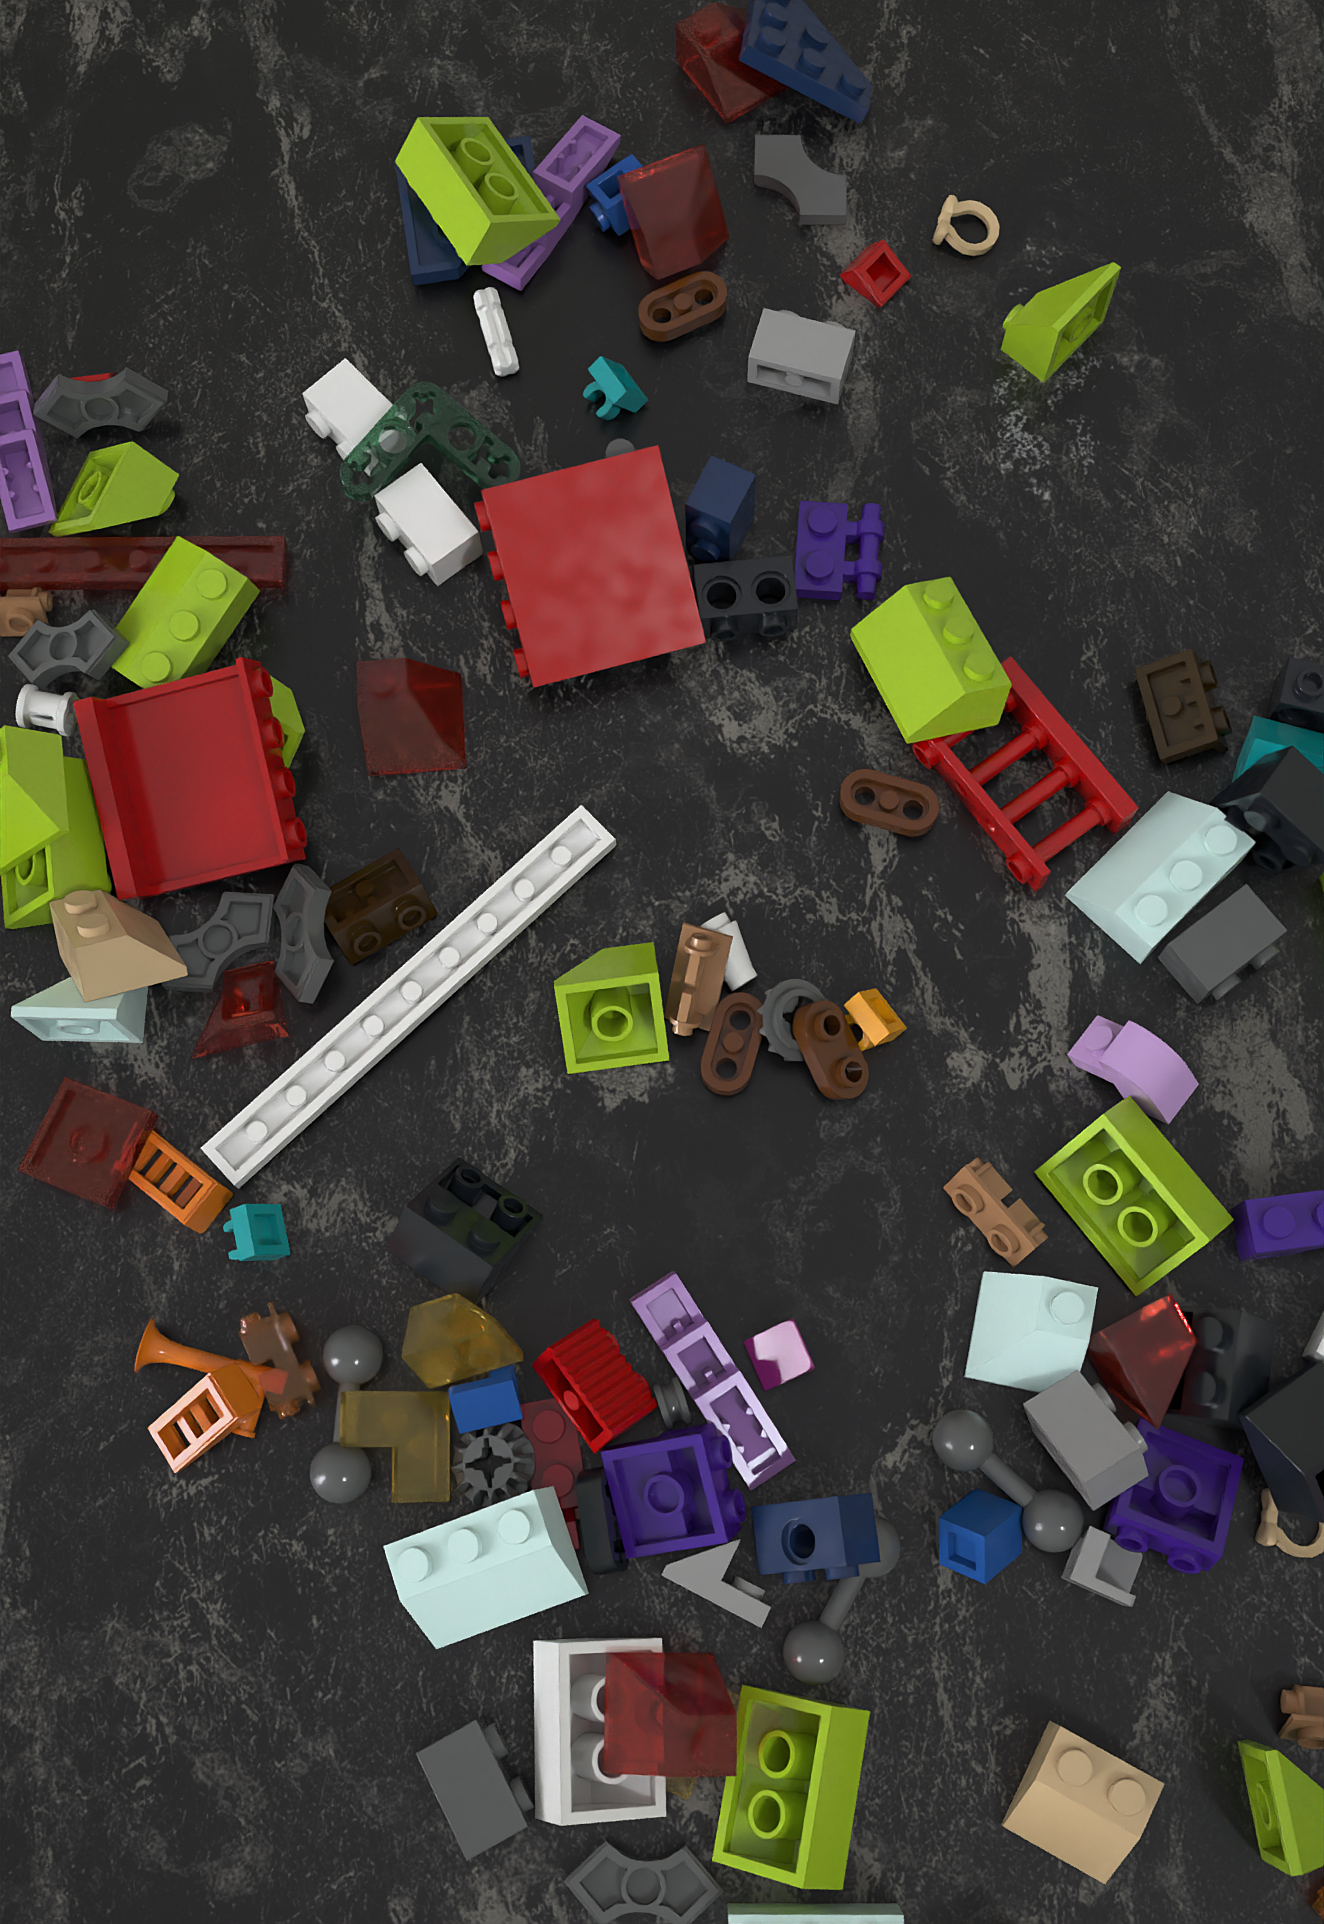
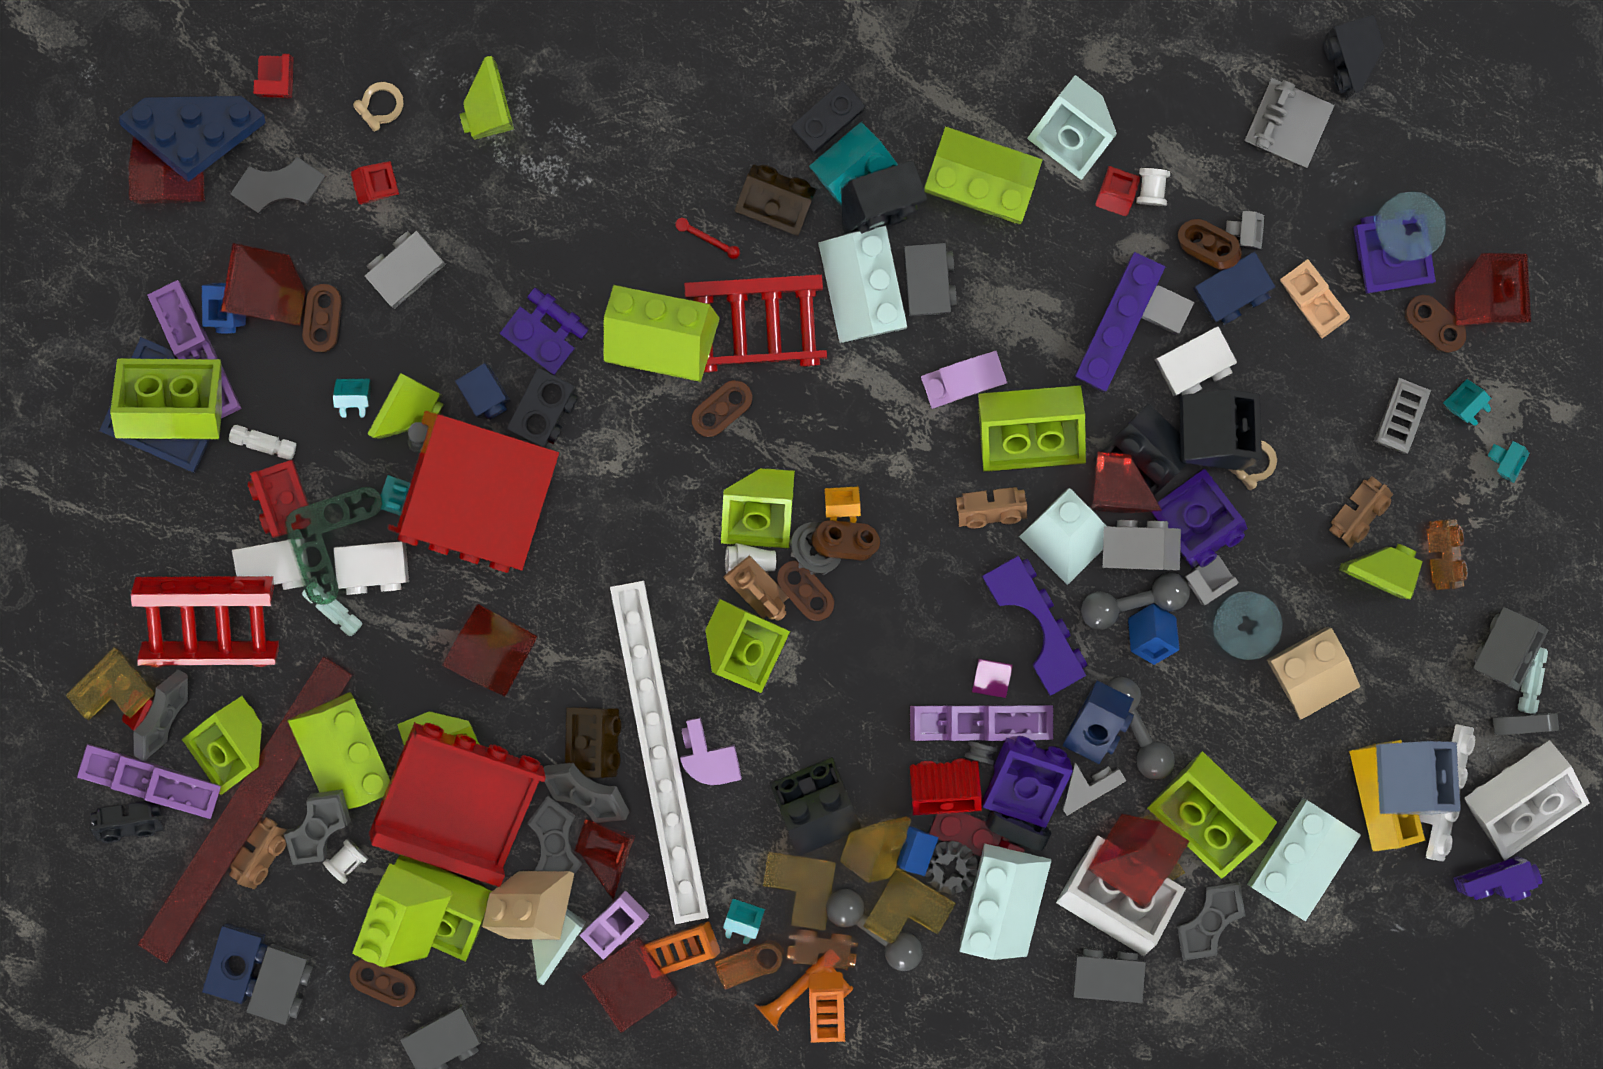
camera: 60 degrees left, 15 degrees up
(105, 336) = (110, 679): none -> clear yellow tile
(155, 1071) = (614, 924): none -> lavender brick
(203, 1276) = (746, 964): none -> clear orange piece
(282, 367) = (205, 591): none -> red fence
(347, 525) = (337, 613): none -> light aqua axle
(364, 1288) = (810, 879): none -> clear yellow tile
(433, 1057) = (705, 765): none -> lavender brick
(449, 366) = (279, 494): none -> red bracket
(643, 421) = (404, 407): none -> lime slope
(797, 920) = (759, 509): none -> lime slope
(856, 1427) = (1057, 663): none -> dark purple arch
(917, 107) = (274, 77): none -> red panel
(1072, 628) = (683, 225): none -> red hinge
(1111, 1660) = (1265, 634): none -> clear light blue plate

